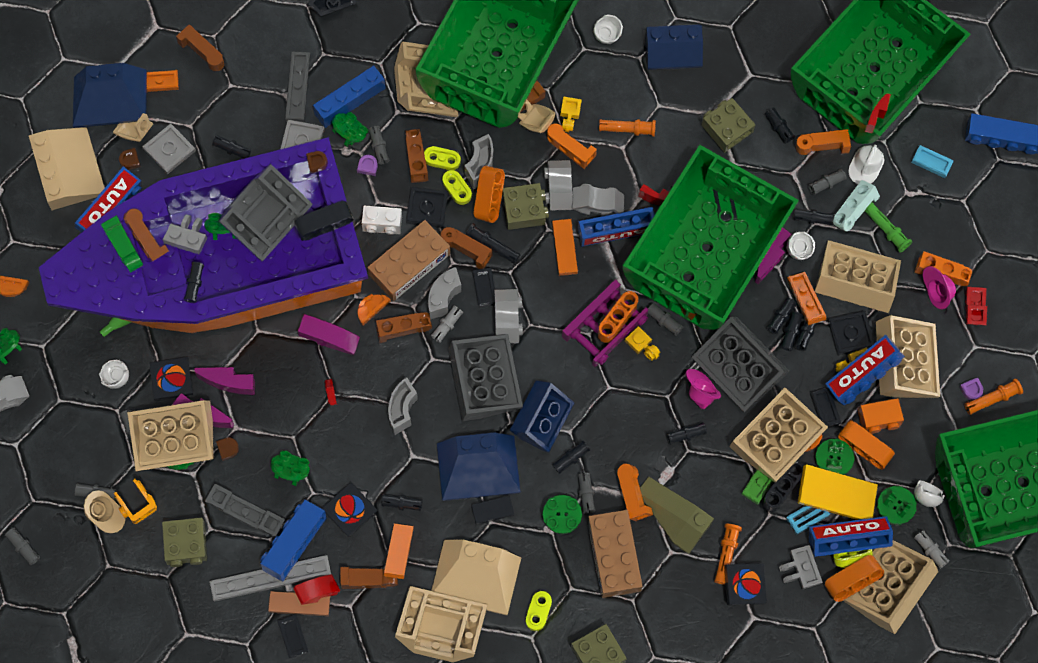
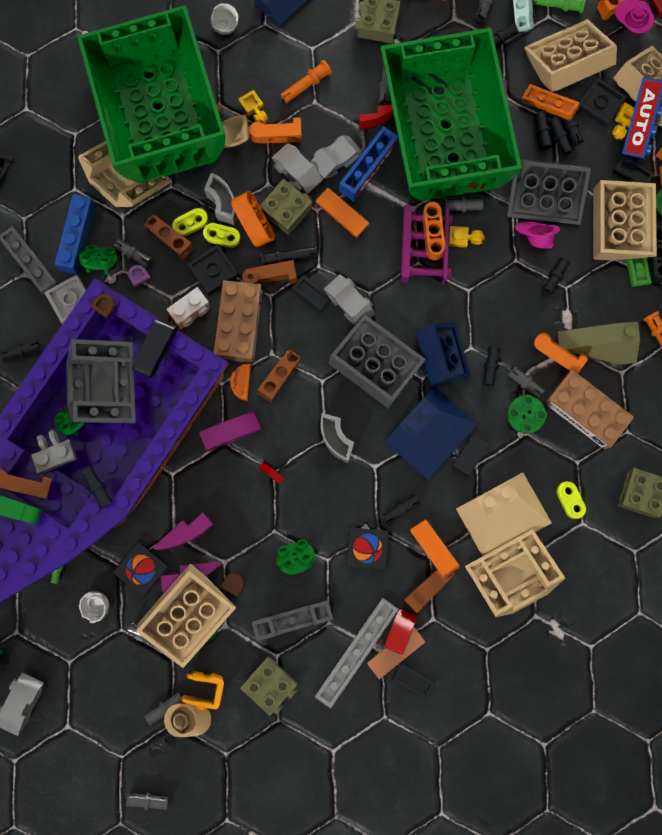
camera: 40 degrees left, 10 degrees up
(293, 540) = (350, 611): blue brick -> none
(442, 292) = (285, 325): light grey brick -> none
(446, 324) = (310, 345): light grey pin -> none
(800, 245) = (511, 66): white hair -> none

